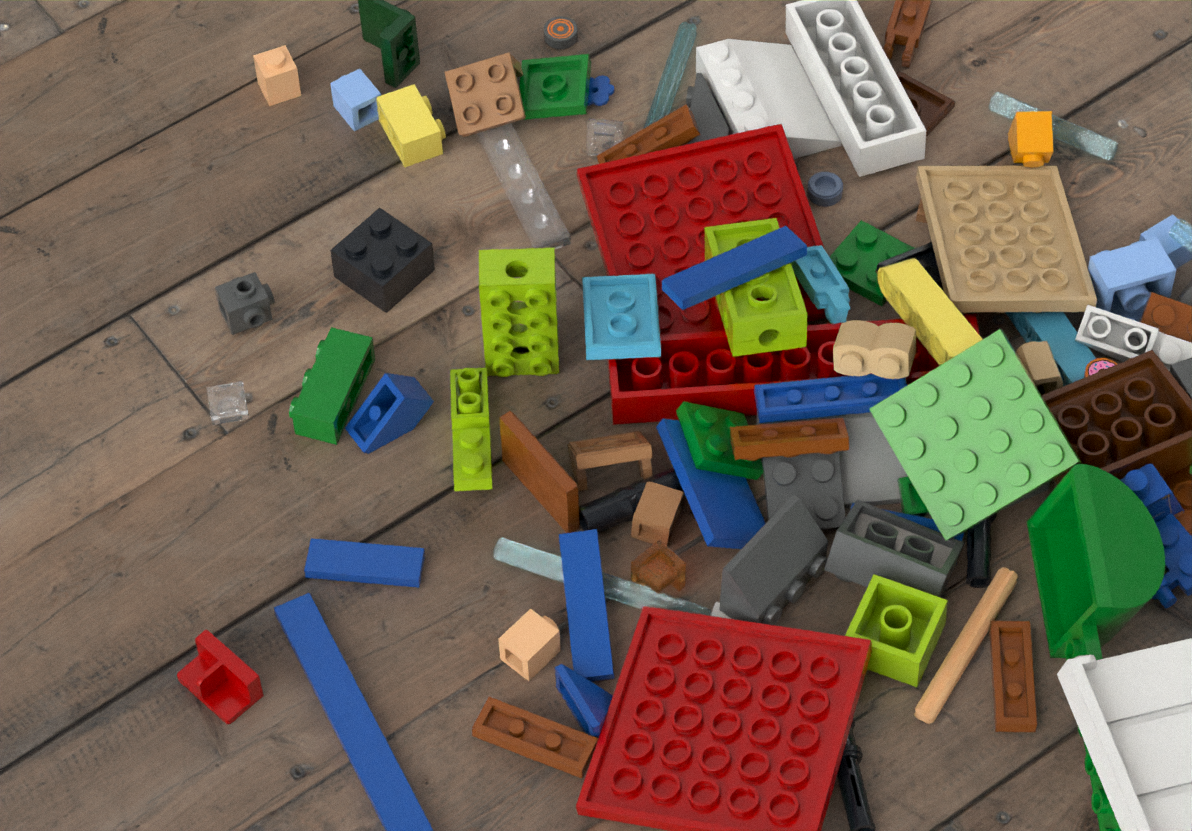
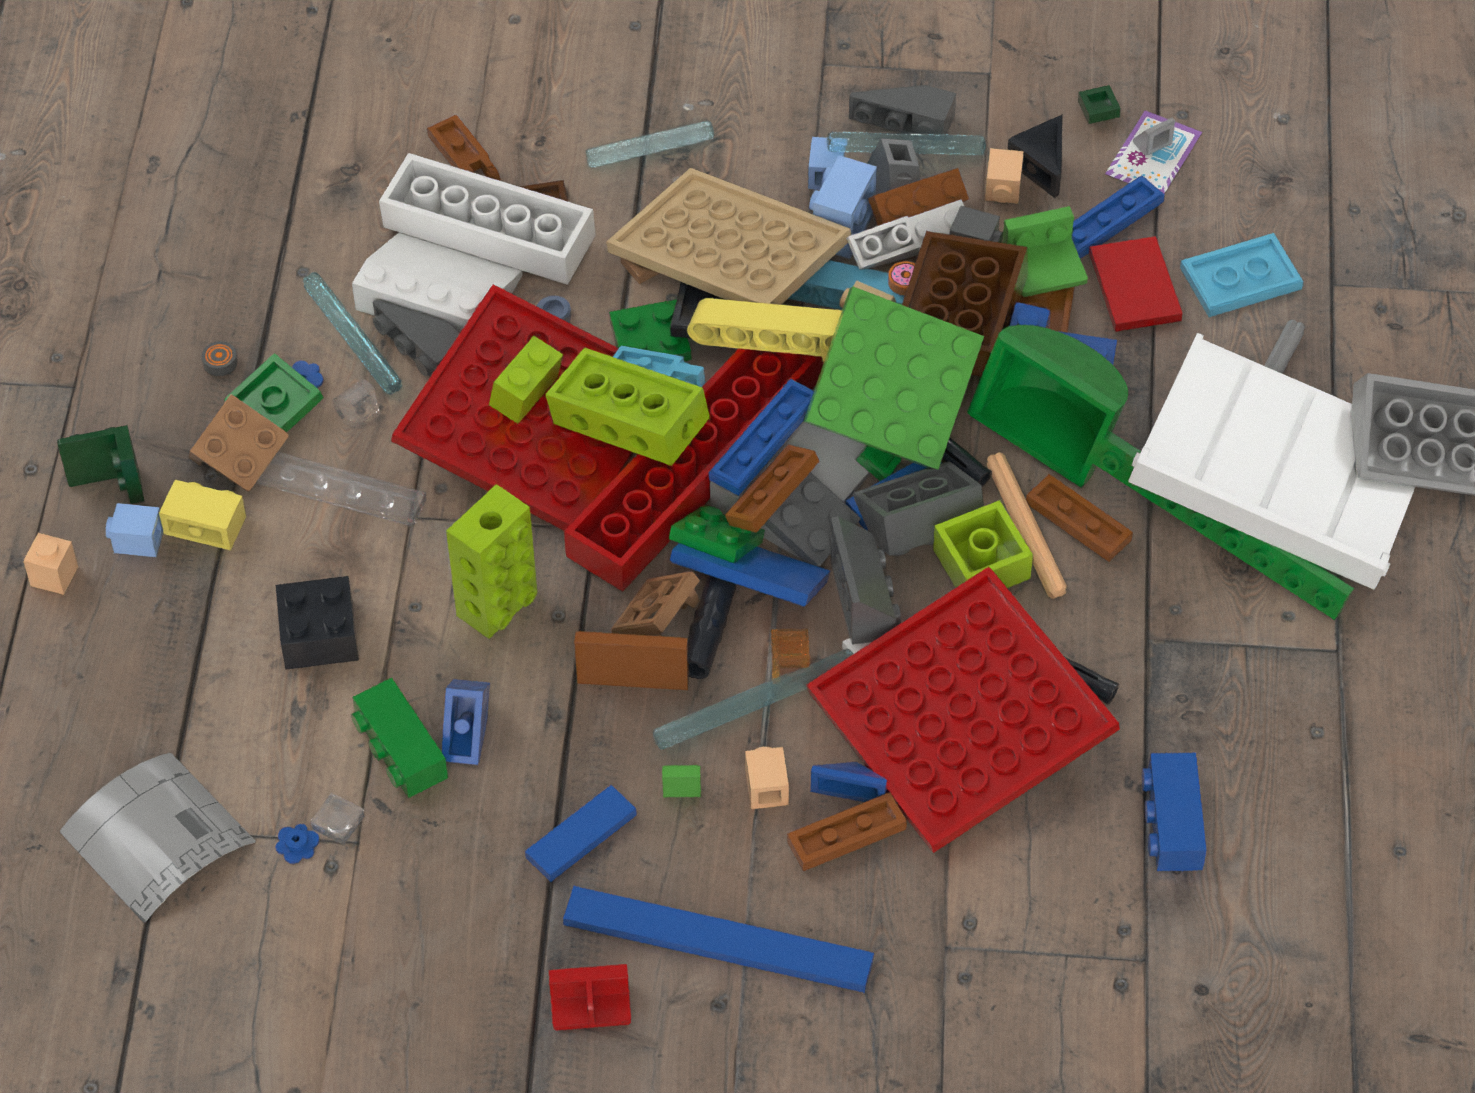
camera: 50 degrees left, 0 degrees up
(120, 305) = (152, 832): none -> light grey sticker
(189, 397) = (293, 850): none -> blue plant
(244, 302) = (258, 740): dark grey brick -> none
(470, 590) = (681, 781): none -> bright green tile
(471, 429) = (538, 682): lime slope -> none
(586, 605) = (769, 717): blue tile -> none
(621, 317) = (562, 507): medium azure tile -> none
(656, 513) = (741, 619): medium nougat panel -> none
(669, 132) = (404, 378): dark orange plate -> none
(711, 205) = (525, 379): none -> lime brick
(734, 267) = (613, 400): blue tile -> none
(874, 349) = (761, 378): tan brick -> none
(1031, 138) = (659, 161): light orange slope -> none

